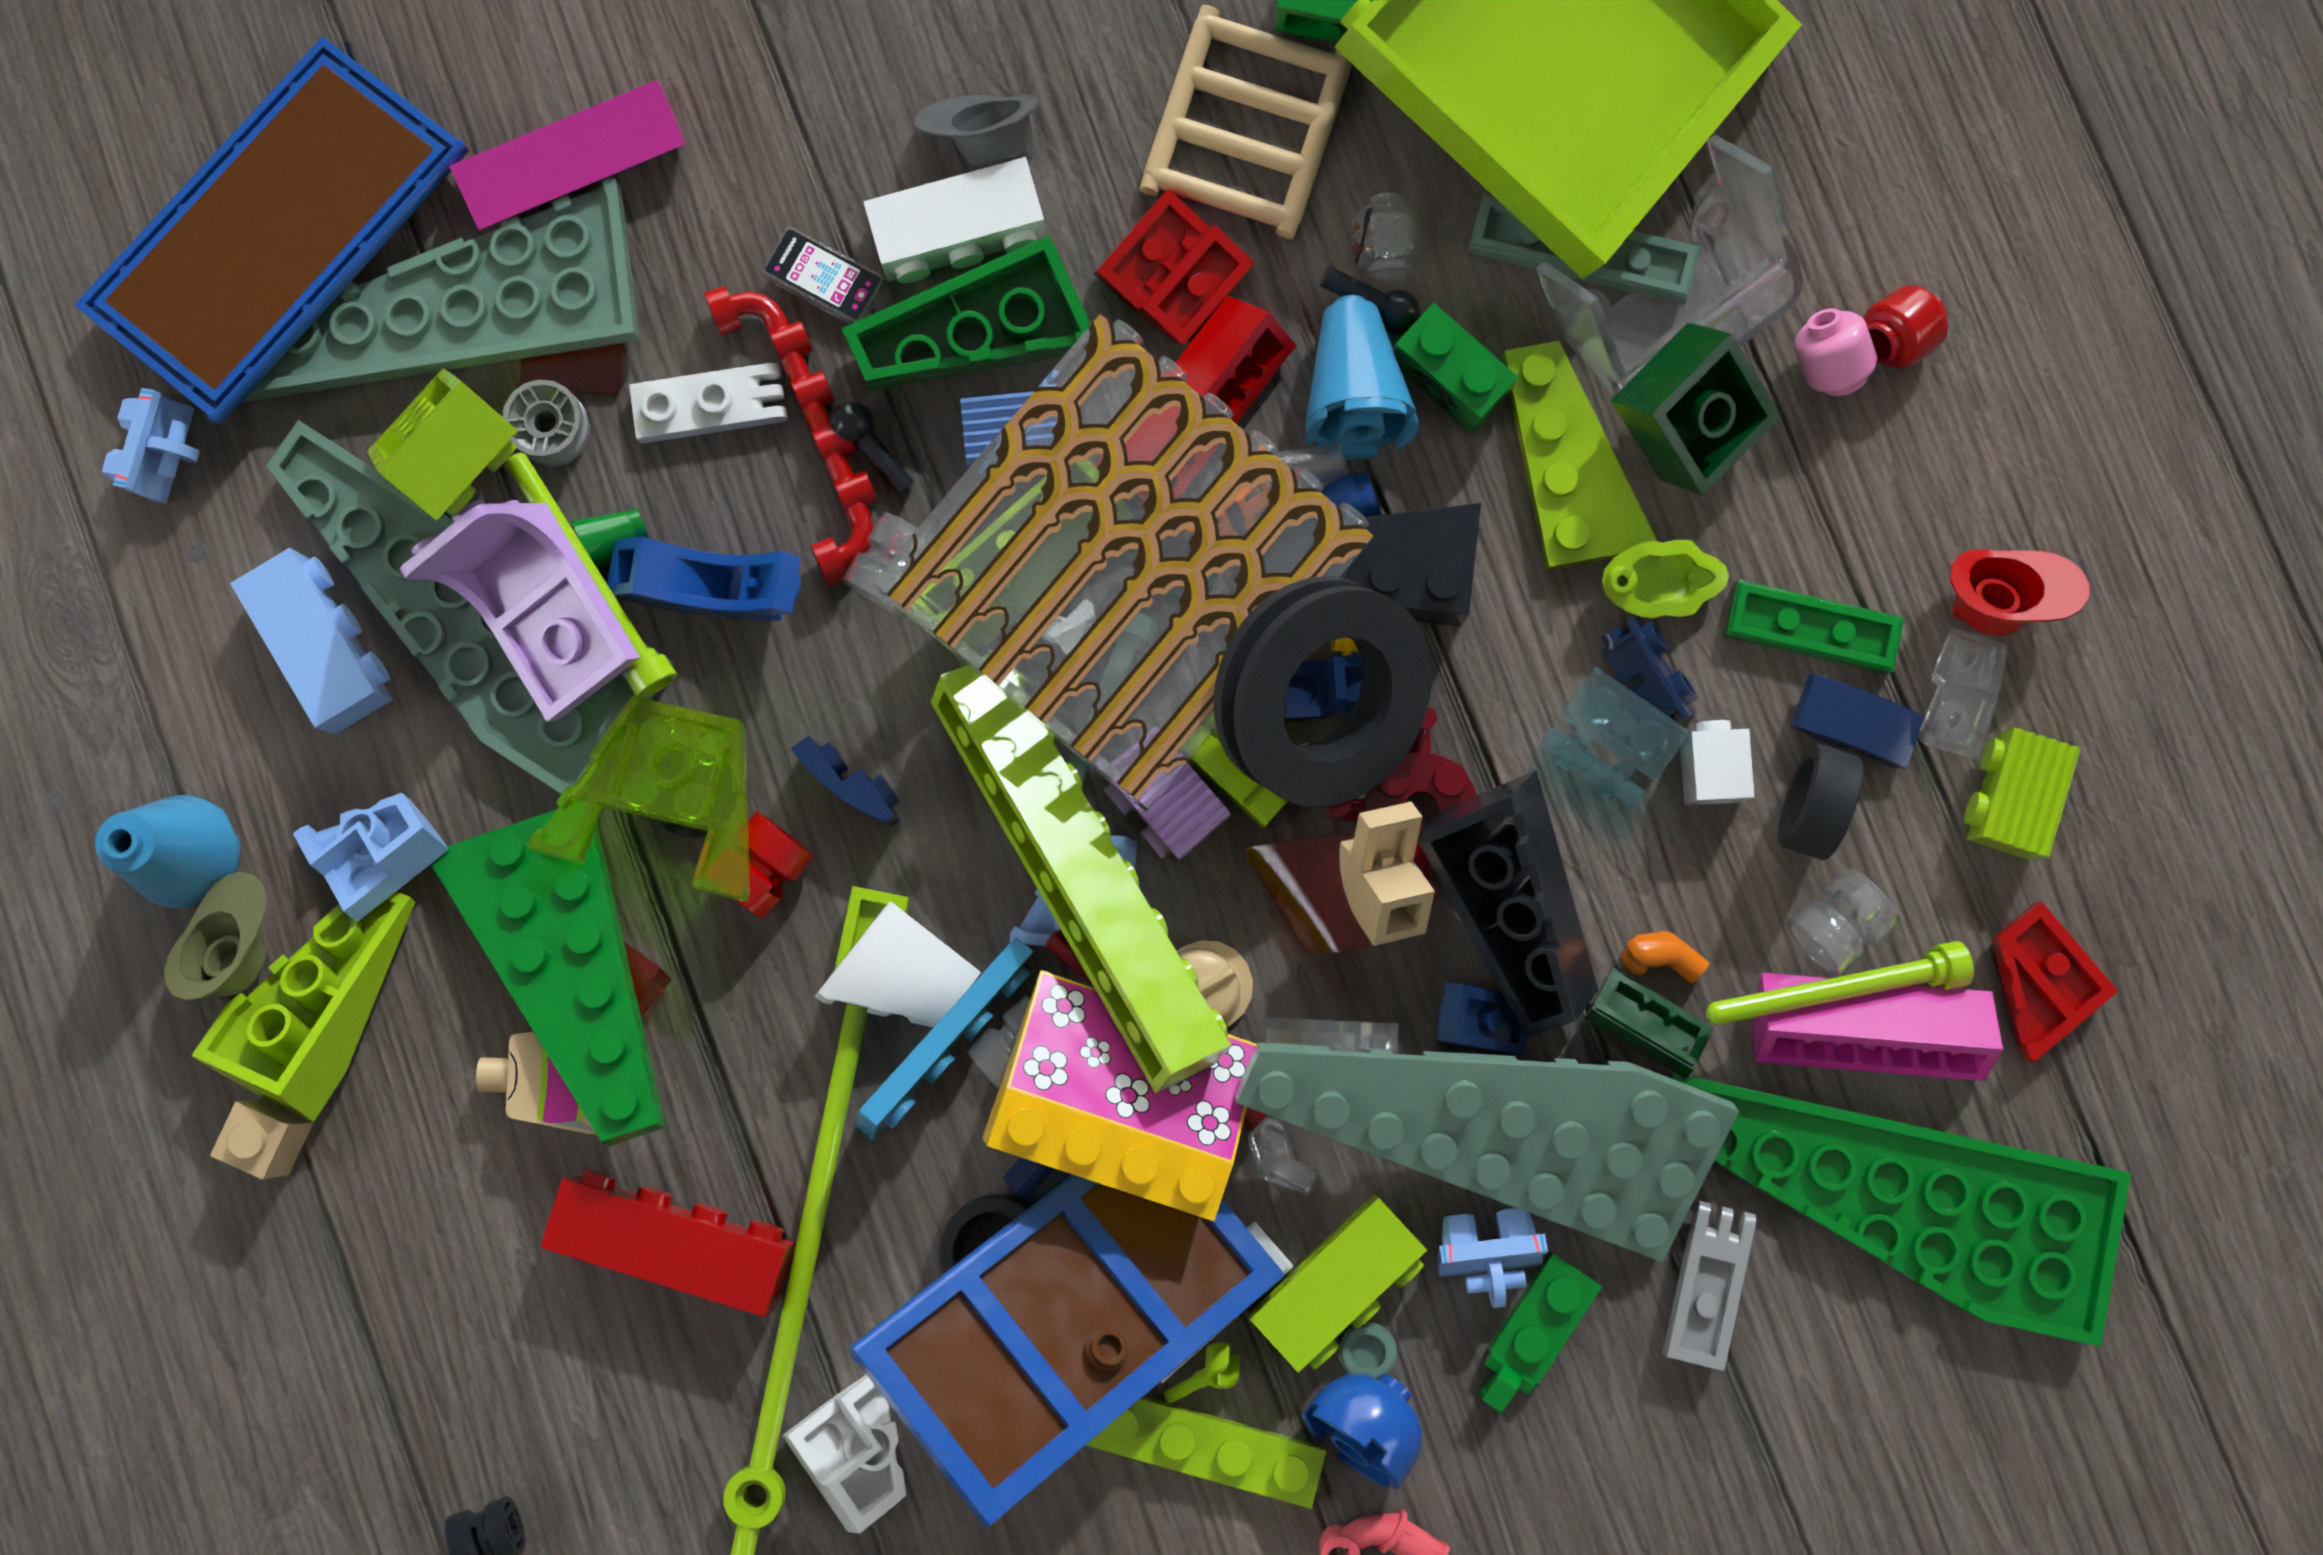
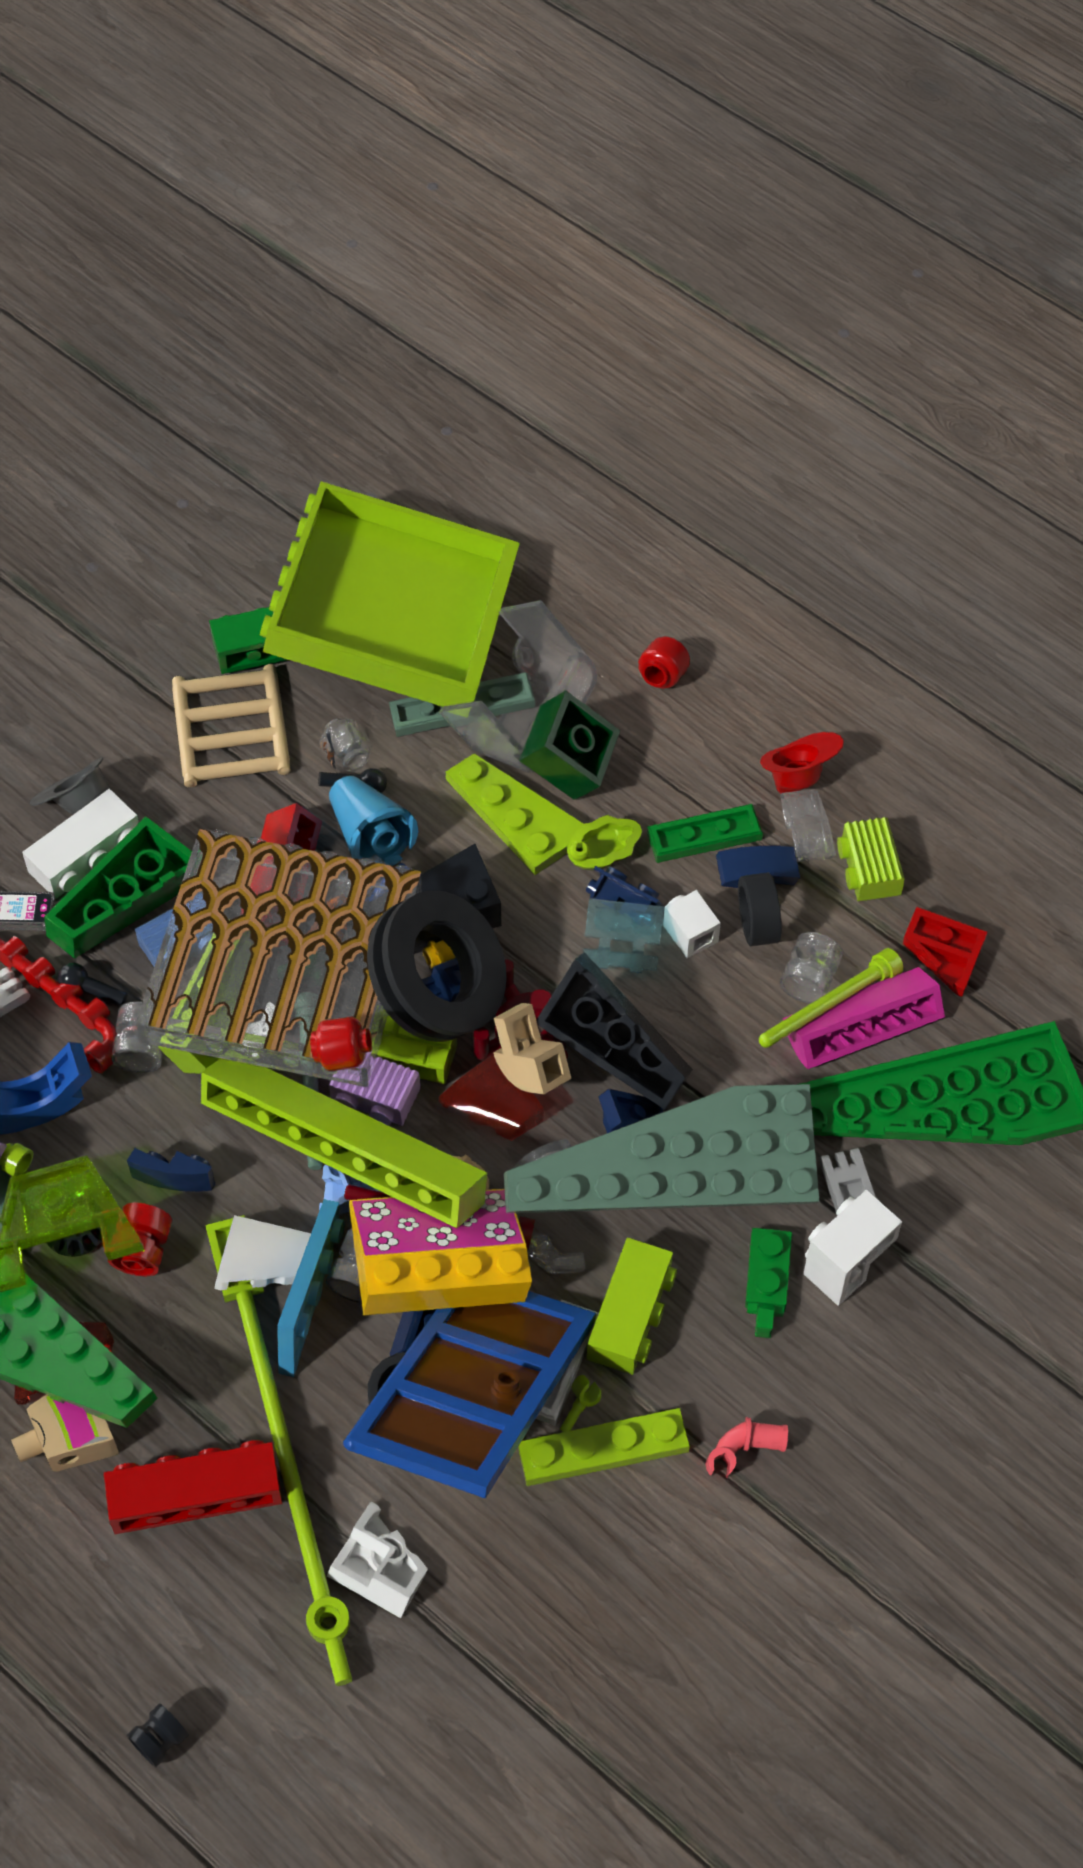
camera: 30 degrees left, 25 degrees down
(1124, 765) = (340, 1043): none -> red head
(1173, 268) = (227, 808): red slope -> none
(1367, 1350) = (672, 1341): sand green tile -> none
(1368, 1425) = (694, 1376): blue cylinder -> none
(1453, 368) = (423, 789): green brick -> none
(1515, 1248) = (715, 1246): light blue hips -> none
(1649, 1023) = (723, 1073): dark green plate -> none
(1663, 949) = (720, 1034): orange arm -> none
(1666, 1372) = (848, 1245): none -> white brick
(1835, 352) = (632, 689): bright pink head -> none

